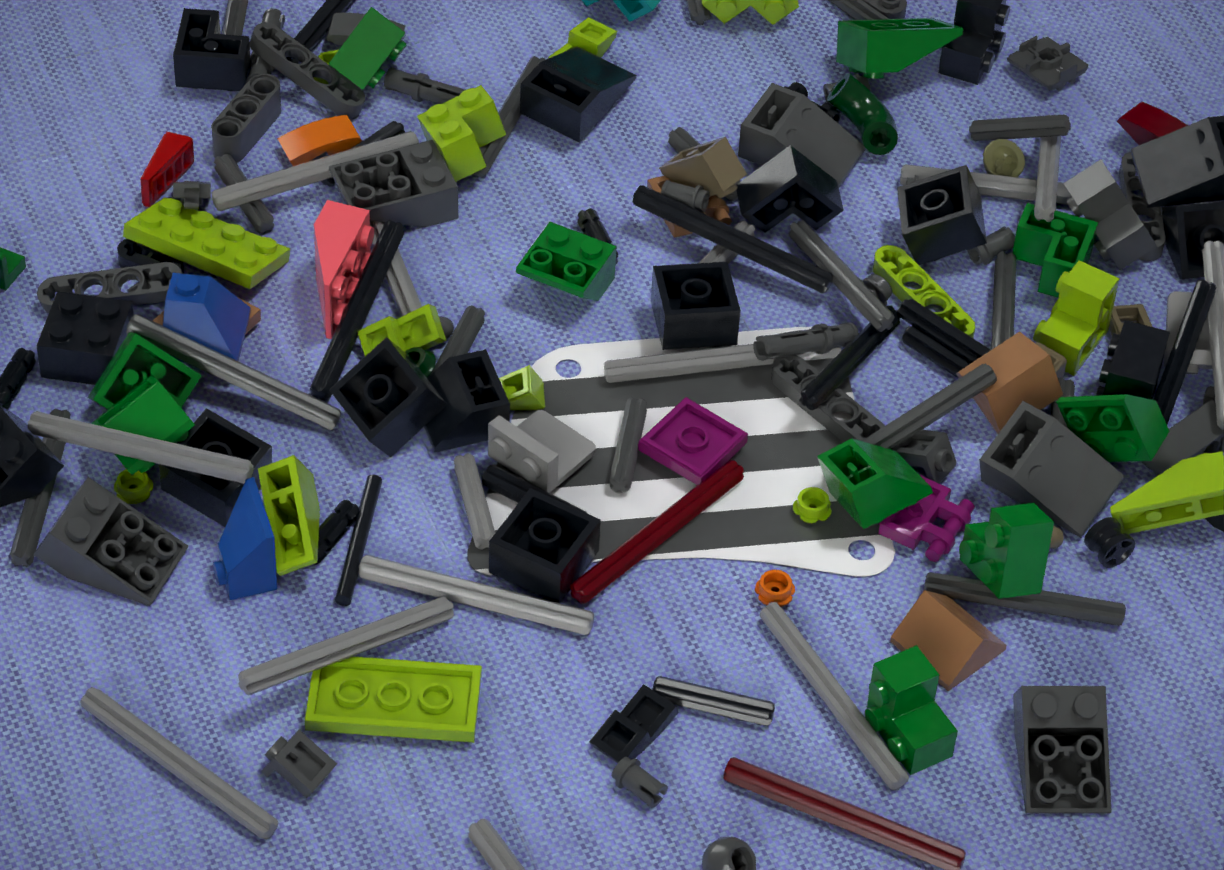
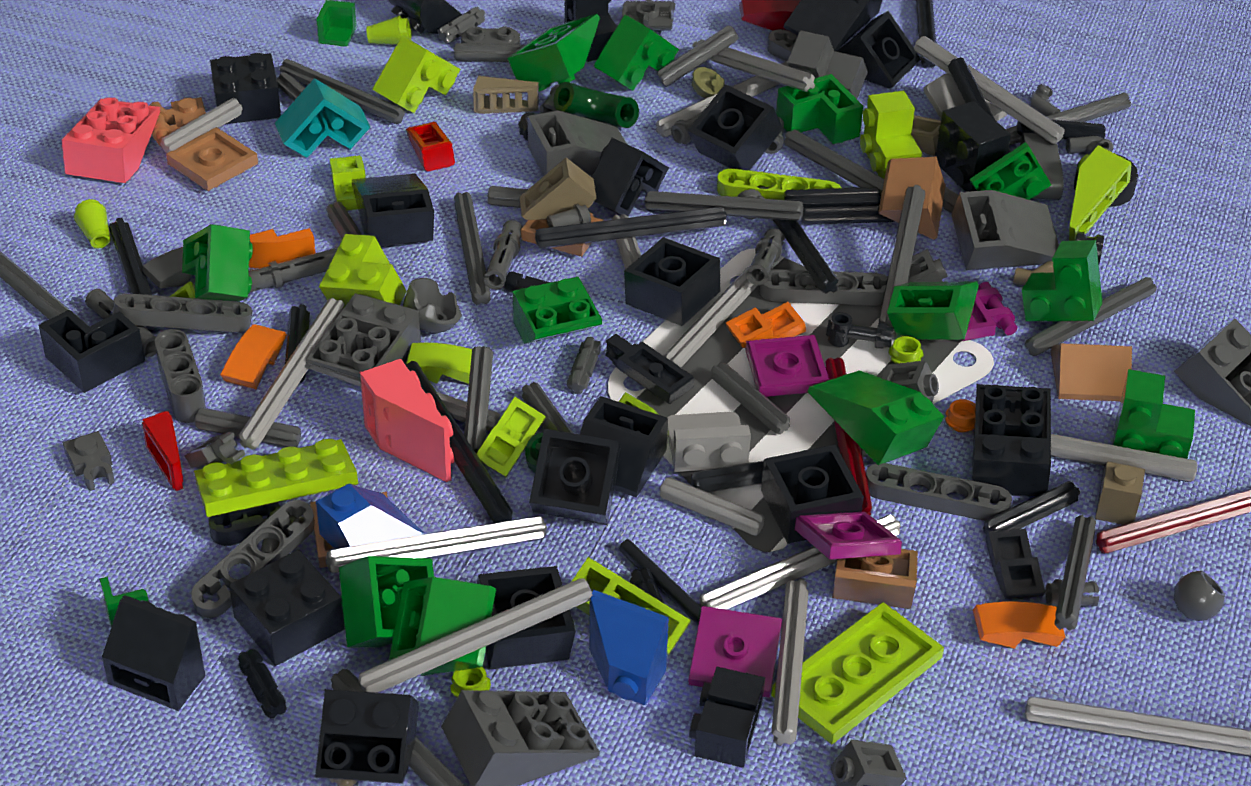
camera: 45 degrees left, 5 degrees down
(116, 136) = (89, 457): none -> dark grey plate
(245, 646) = (728, 716): none -> black piece
(328, 606) = (736, 643): none -> magenta plate
(411, 283) = (478, 396): none -> dark grey axle
(439, 64) = (270, 247): none -> orange slope
(444, 244) = (441, 359): none -> lime slope
(486, 191) = (435, 310): none -> dark grey hair
(508, 639) = (878, 579): none -> medium nougat slope
(510, 593) = (848, 535): none -> magenta plate
(543, 324) = (584, 365): none -> dark grey axle
(566, 765) = (1013, 620): none -> orange slope
(581, 364) = (649, 368): none -> black hinge
(597, 169) = (471, 248): none -> dark grey axle
(619, 186) = (498, 264): none -> dark grey pin
(651, 763) = (1075, 573): none -> dark grey axle
(667, 626) = (938, 488): none -> dark grey beam
(689, 60) = (431, 146): none -> red slope
(692, 529) = (879, 414): none -> green slope
(729, 402) = (776, 323): none -> orange slope
(768, 632) = (1012, 438): none -> black slope
(770, 530) = (914, 376): none -> dark grey bracket
(781, 451) = (841, 329): none -> black bar
(804, 53) = (504, 104): none -> dark tan slope
(805, 741) = (1119, 493): none -> dark tan slope
(964, 83) = (632, 51): none -> green brick

